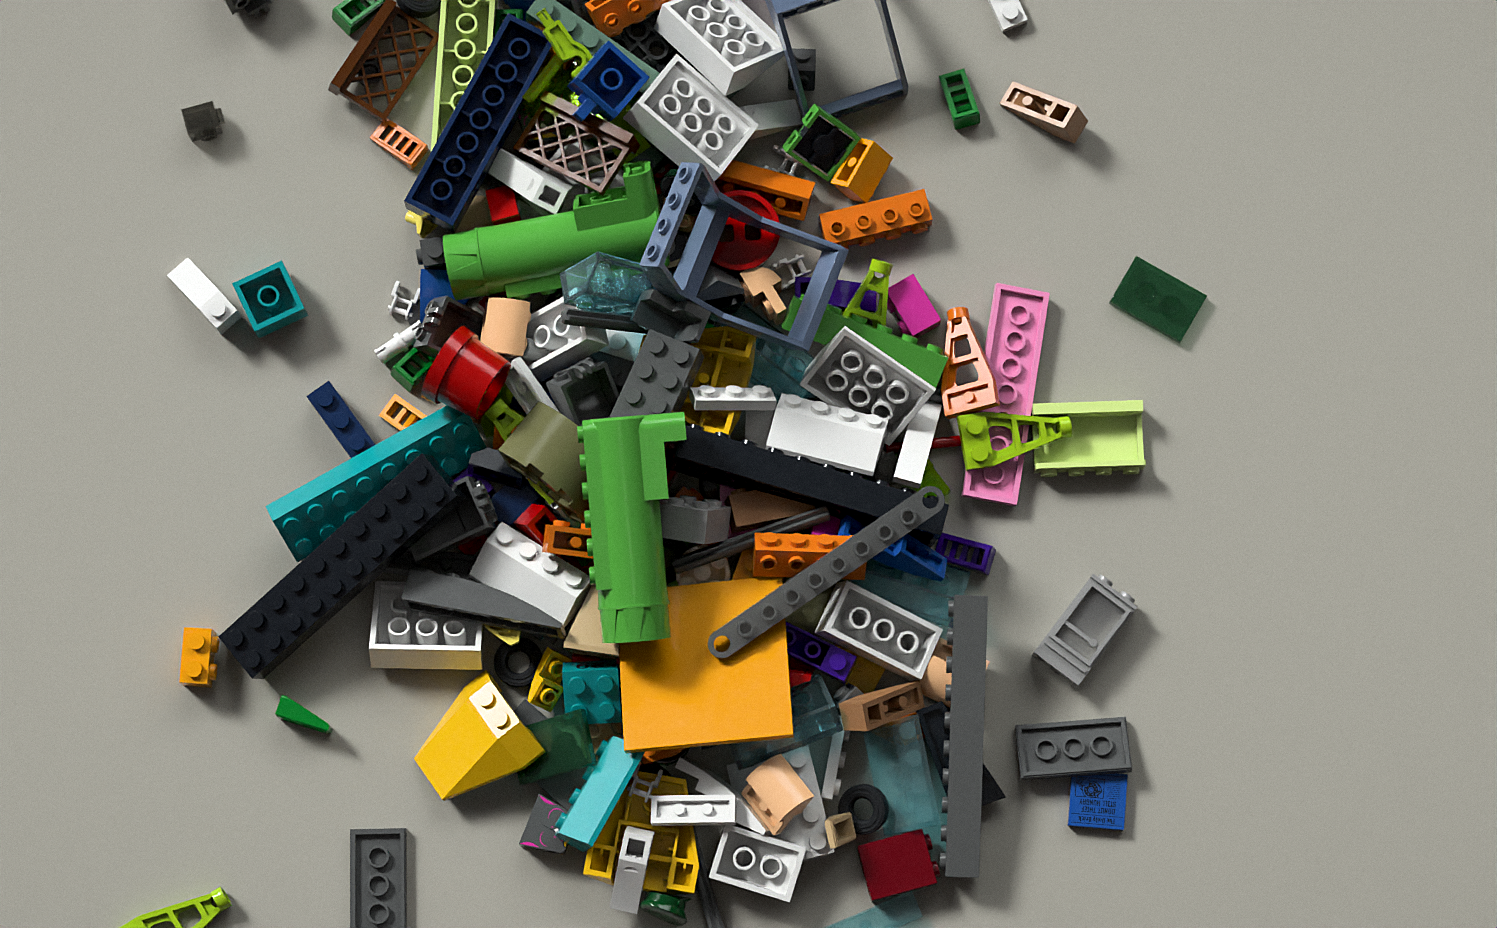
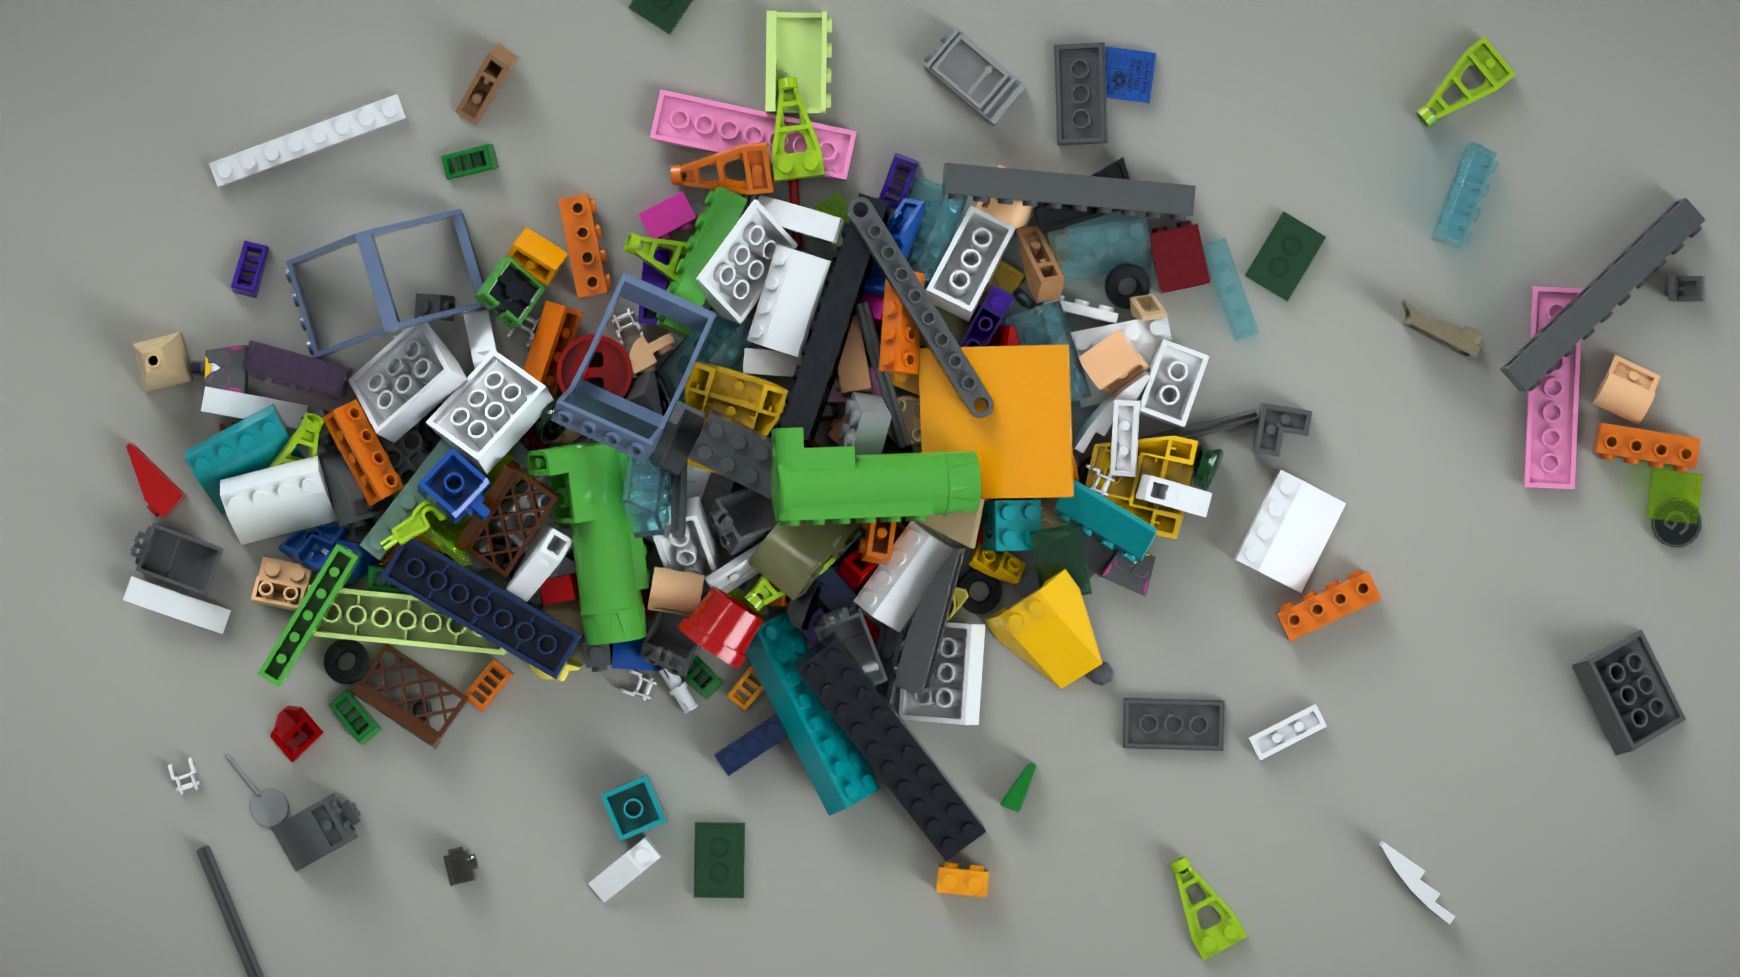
camera: 85 degrees left, 10 degrees up
(216, 395) = (719, 859): none -> clear green tile
(431, 801) = (1101, 674): none -> dark grey tile
(732, 398) = (753, 385): white plate -> none

